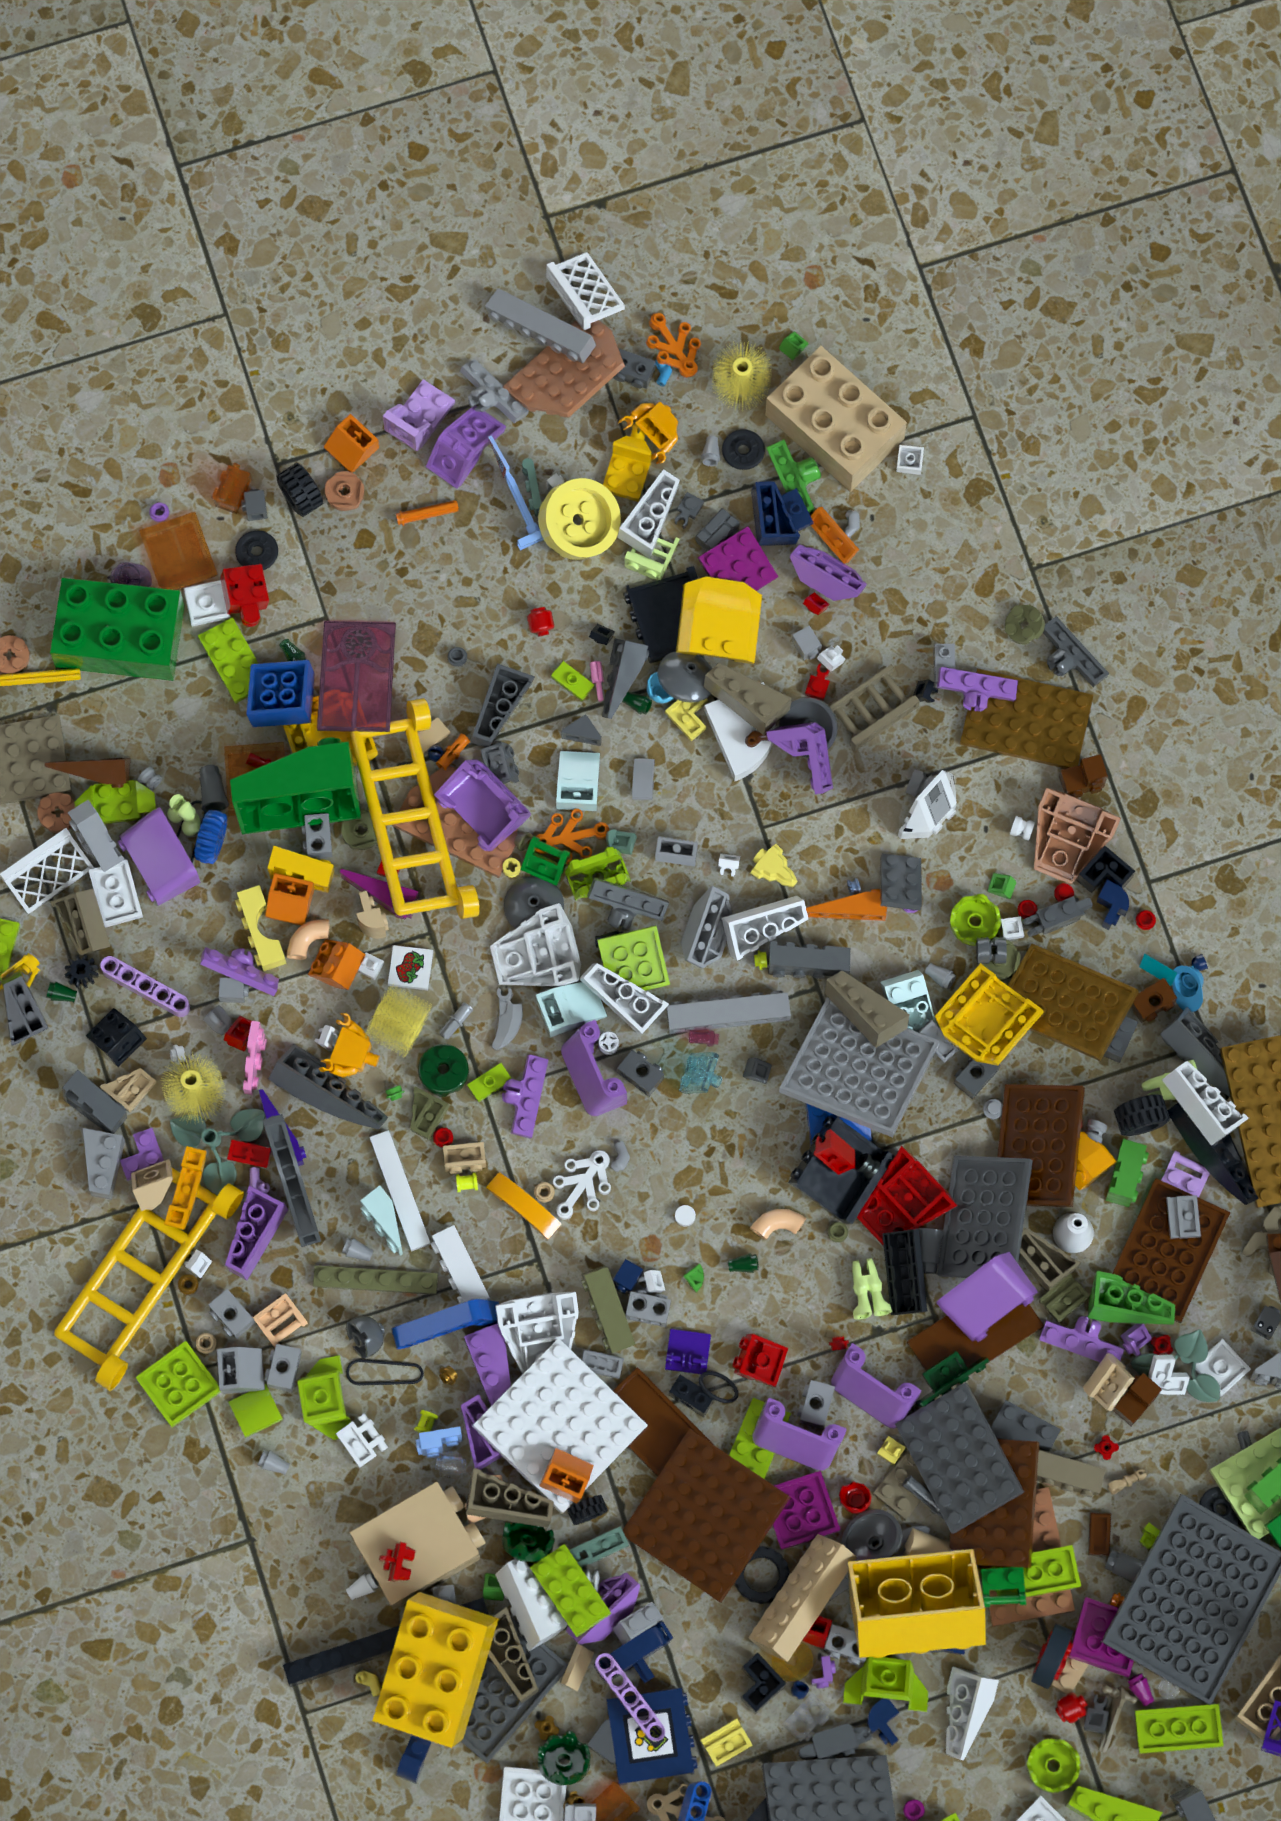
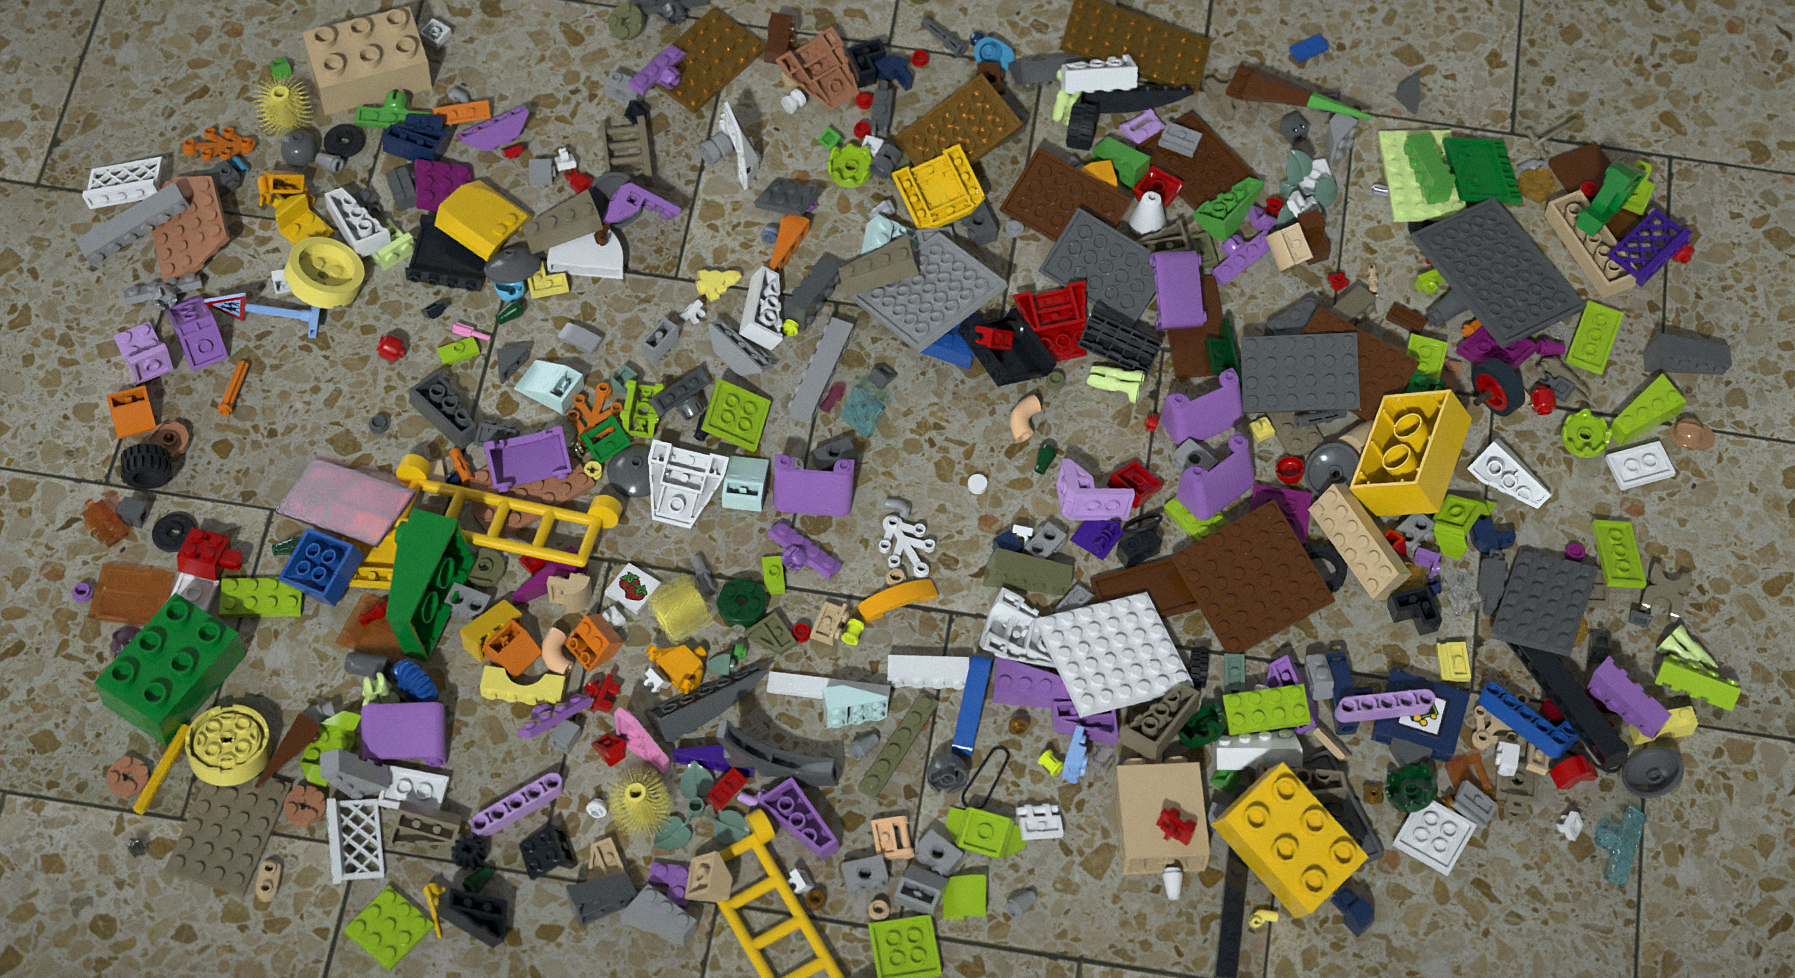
camera: 65 degrees left, 15 degrees down
(77, 737) = (231, 761): none -> light yellow brick
(187, 1188) = (735, 860): light orange slope -> none
(218, 1020) = (586, 760): light grey piece -> none
(280, 1000) = (607, 686): none -> red hips
(373, 1086) = (722, 664): none -> sand green plate
(509, 1020) = (725, 533): light grey piece -> none
(531, 485) = (267, 298): sand green plate -> none
(566, 1475) = (1167, 661): orange slope -> none
(626, 999) = (765, 433): white wedge -> none
(627, 662) = (474, 303): dark grey wedge -> none
(695, 1277) = (1035, 501): bright green tile -> none
(707, 1317) = (1083, 502): none -> lavender bracket
(711, 416) = (299, 148): none -> dark grey cylinder
(1113, 1223) = (1159, 182): none -> red slope
(1157, 969) = (965, 67): teal sticker -> none
(1183, 937) = (949, 40): none -> dark grey pin

